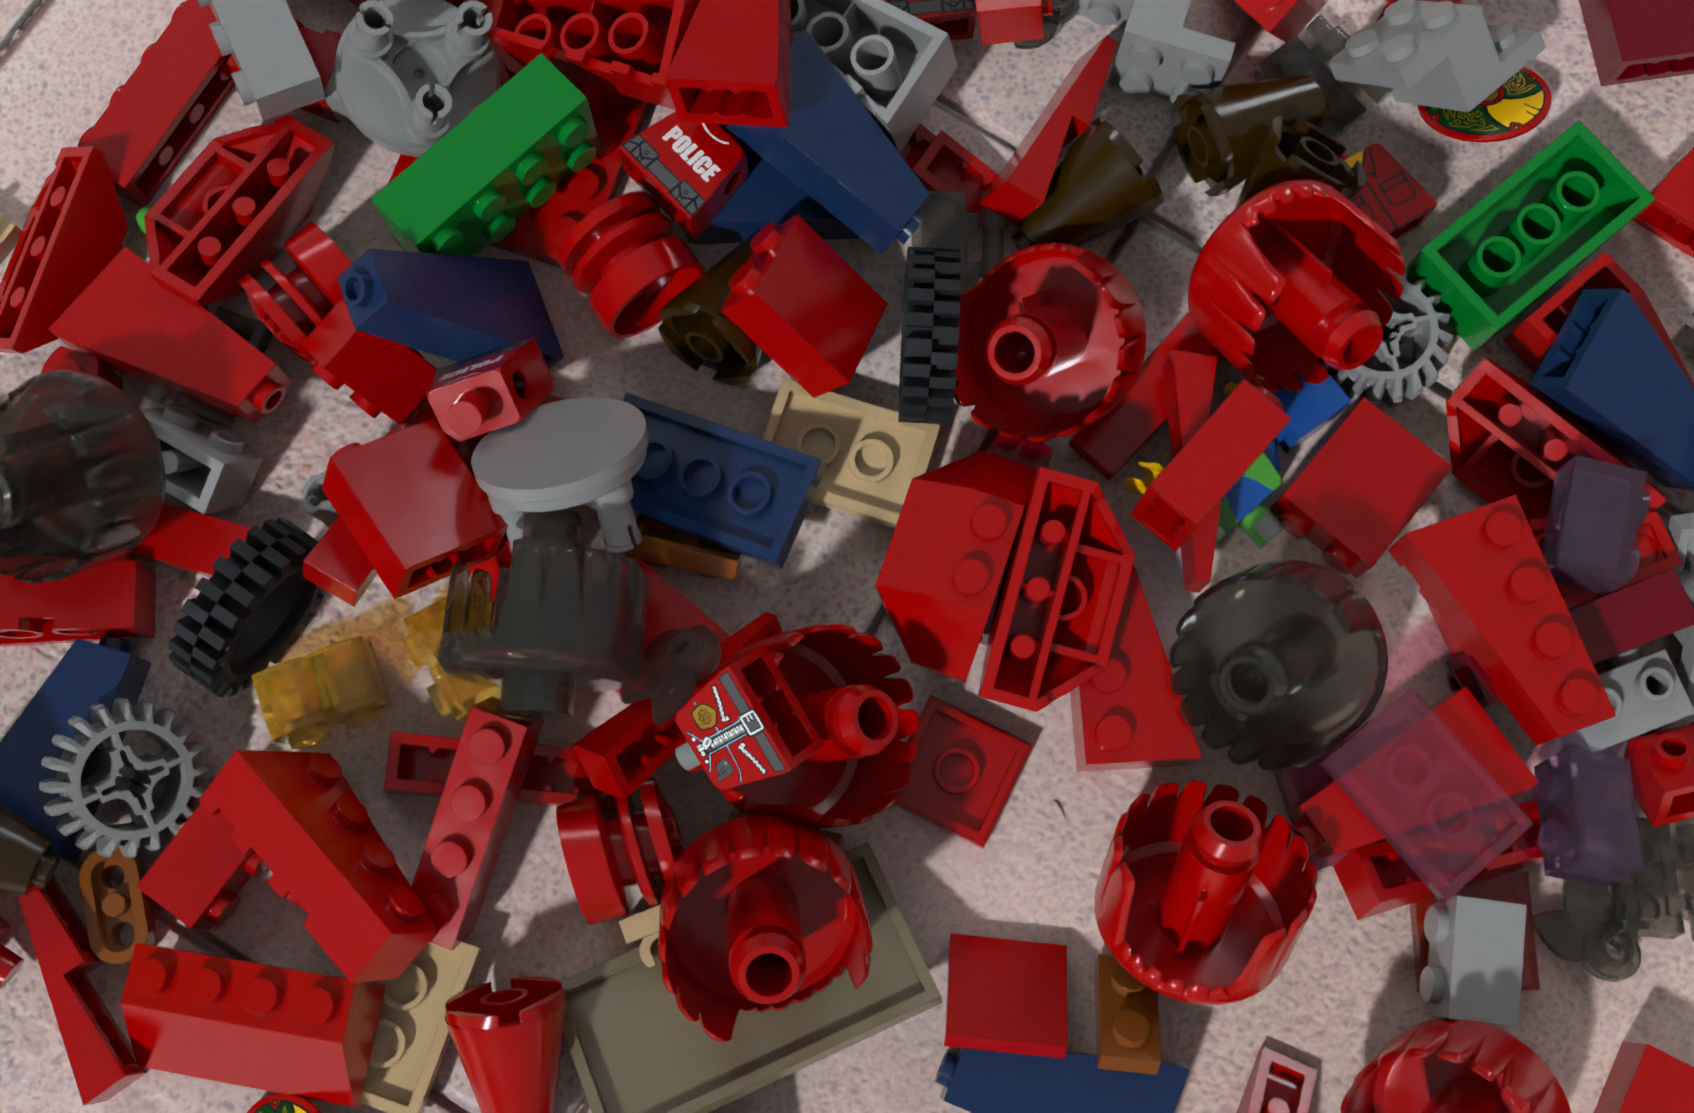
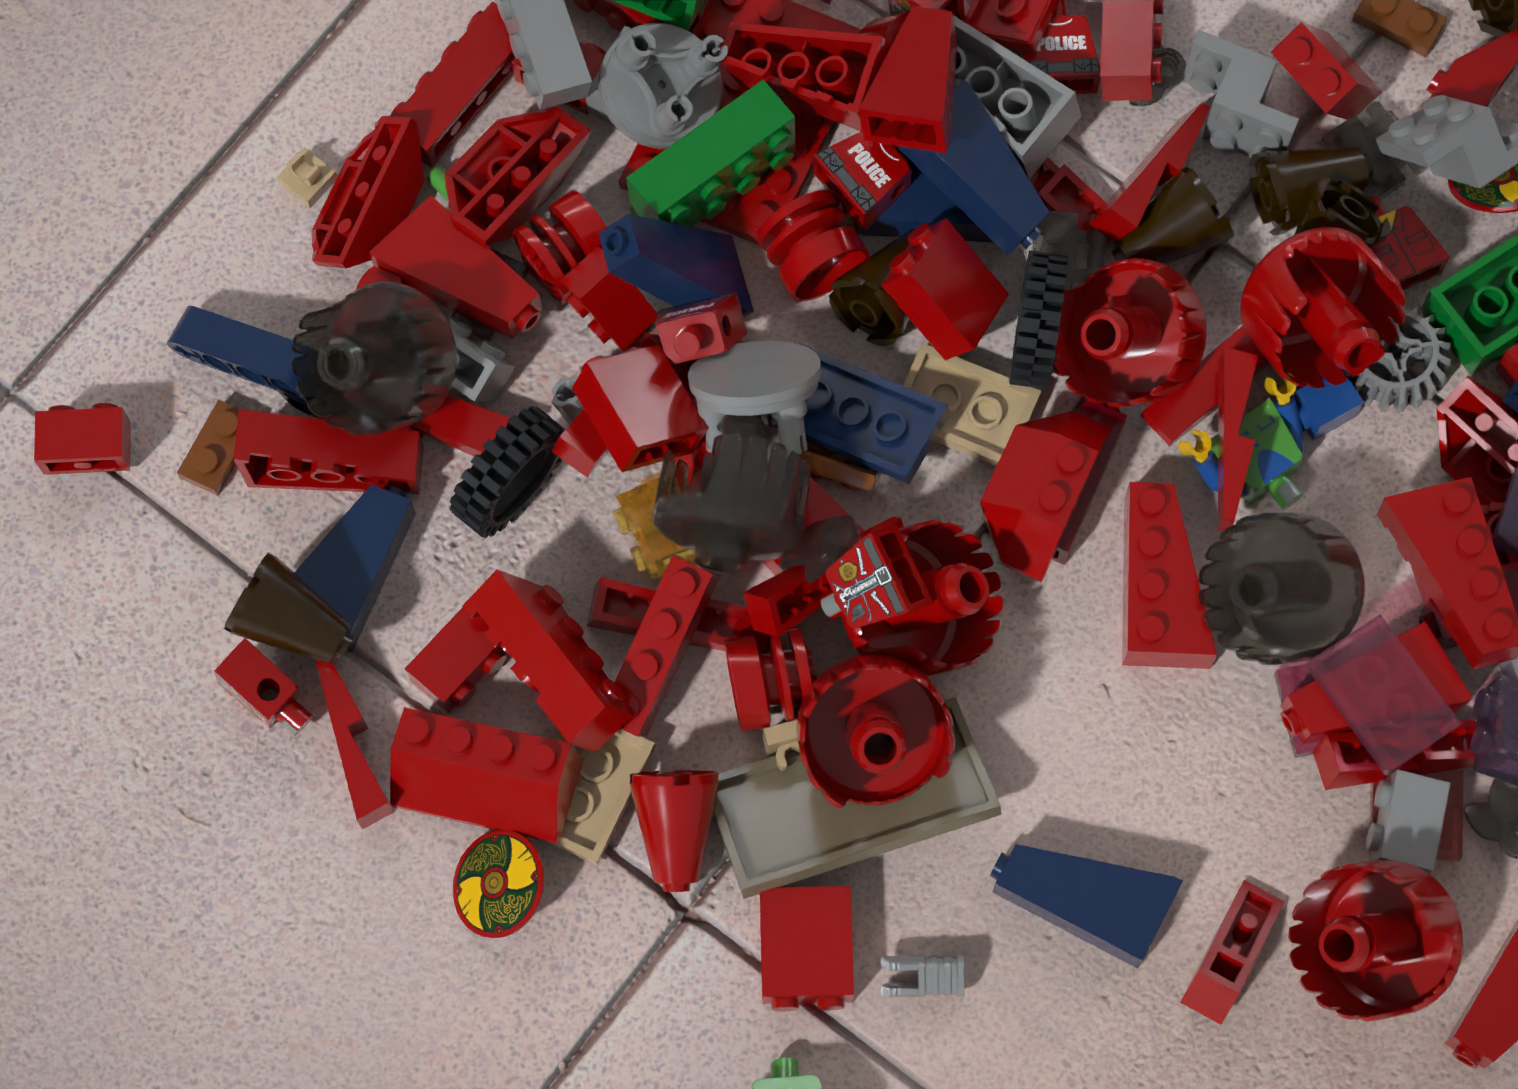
camera: 10 degrees right, 5 degrees down
(111, 908) = (382, 687): dark orange plate -> none
(113, 754) = (389, 557): light grey gear -> none
(321, 691) = (549, 544): clear yellow brick -> none
(960, 771) = (1030, 654): red tile -> none
(1006, 996) = (1050, 816): red tile -> none
(1057, 594) = (1118, 519): red wedge -> none
(1125, 1020) = (1140, 839): dark orange plate -> none
(1203, 893) = (1205, 748): red piece -> none
(1210, 464) = (1239, 431): red brick -> none
(1360, 489) = (1361, 467): red brick -> none

